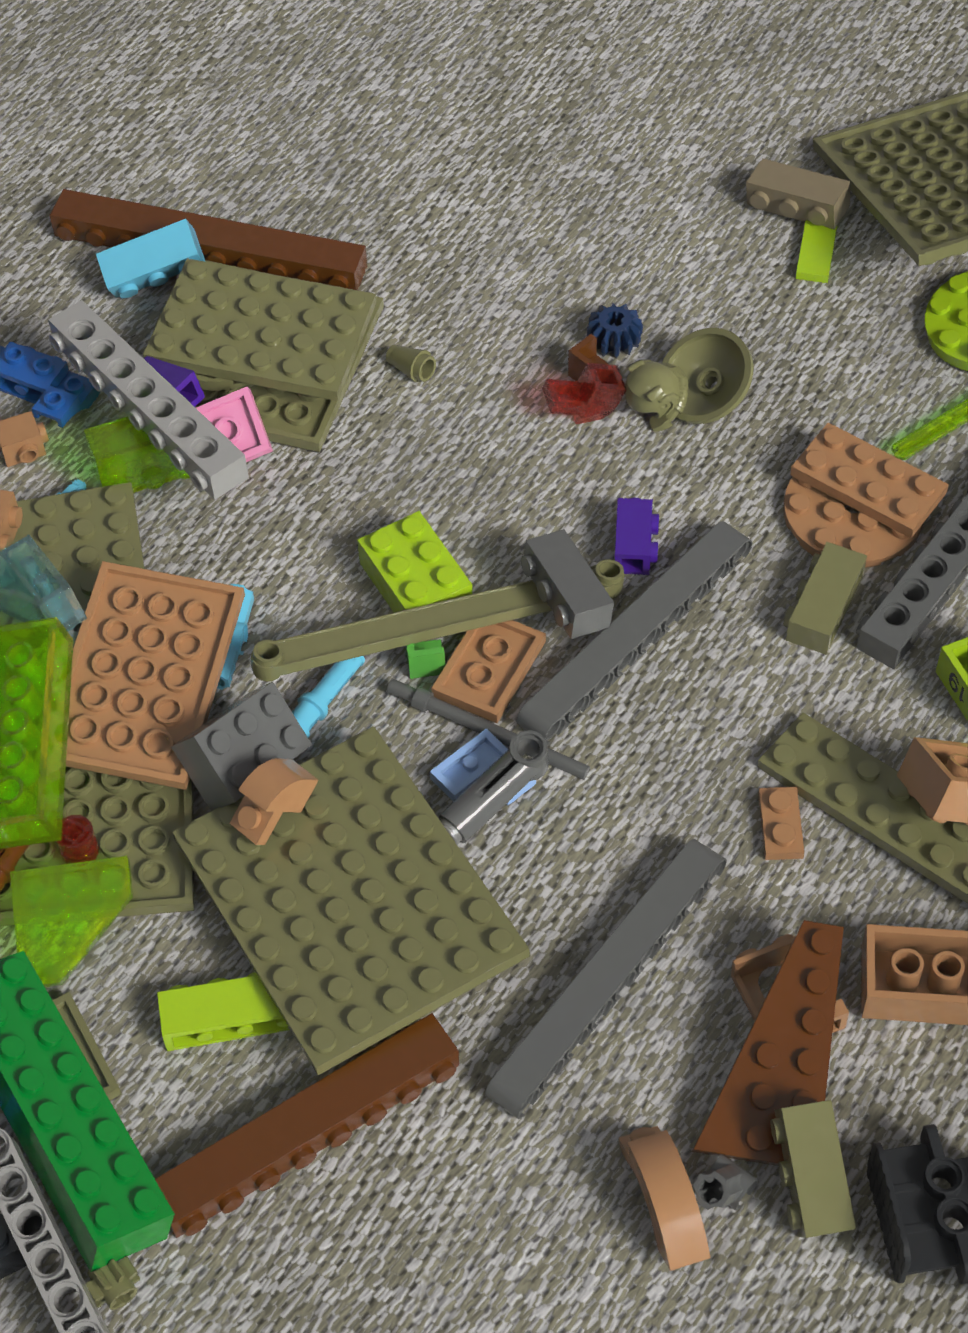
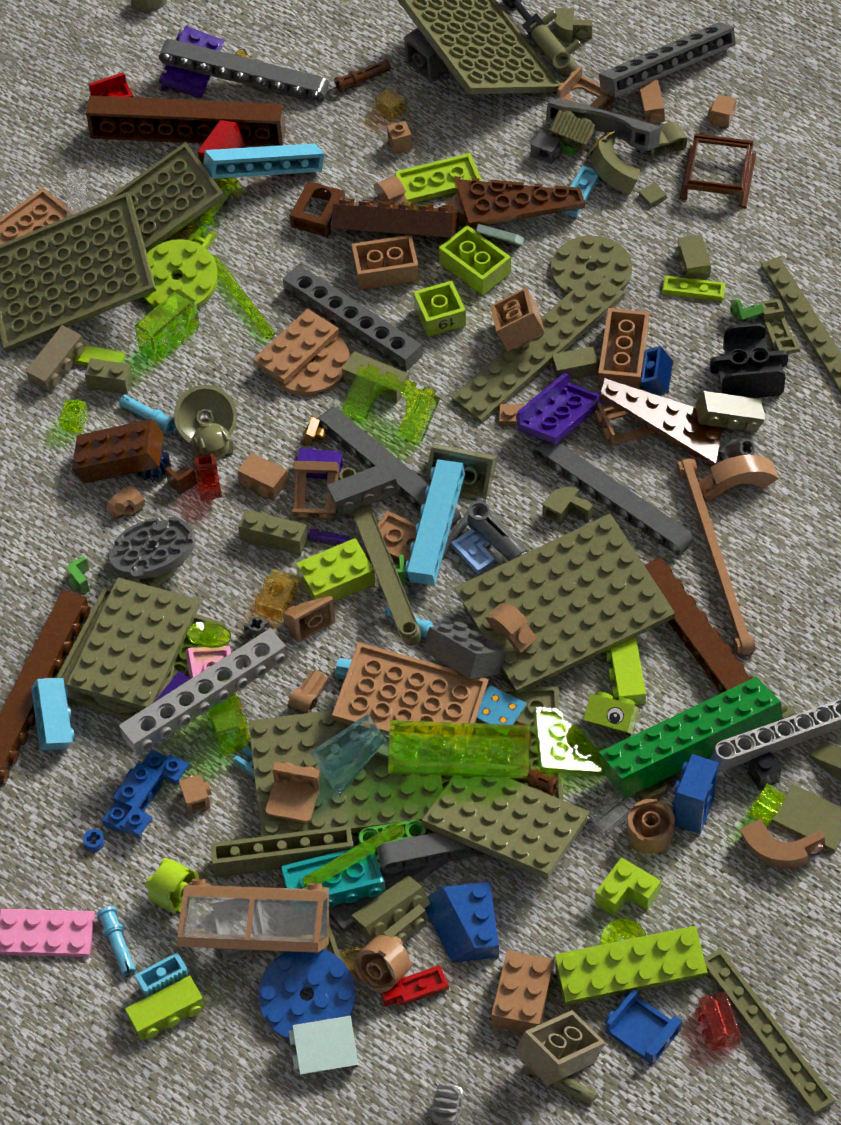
camera: 85 degrees left, 0 degrees up
(116, 977) = (610, 713): none -> lime brick
(149, 817) = (500, 707): none -> dark azure sticker
(185, 557) = (307, 695): none -> medium nougat piece
(285, 1209) = (743, 643): none -> medium nougat piece
(286, 406) = (209, 634): none -> clear neon green dish
(309, 485) = (255, 627): none -> dark grey gear
(322, 539) = (309, 617): none -> medium nougat slope
(370, 502) = (279, 584): none -> clear yellow brick
(400, 266) = (75, 574): none -> bright green bracket
(444, 337) = (133, 550): none -> dark grey plate
(491, 486) = (273, 532): none -> olive brick
(492, 563) = (327, 537): none -> dark purple axle
(507, 690) = (435, 522): none -> medium azure brick
(539, 306) = (125, 502): none -> medium nougat rock
(584, 896) = (566, 501): none -> olive brick
(599, 507) = (301, 469): none -> medium nougat panel
(602, 464) = (262, 476): none -> medium nougat brick
(617, 273) = (117, 451): none -> reddish brown brick
(640, 733) = (478, 469): none -> olive slope
(695, 229) = (73, 416): none -> clear neon green brick
(697, 520) = (313, 433): none -> pearl gold tile
(717, 308) = (164, 422): none -> medium azure pin
(761, 648) = (419, 403): none -> clear neon green arch
(774, 258) = (108, 376): none -> olive brick
(779, 866) = (557, 410): none -> dark purple bracket
(878, 309) = (167, 325): none -> clear neon green brick
(900, 1036) = (656, 371): none -> blue brick
(903, 894) = (576, 363): none -> olive brick

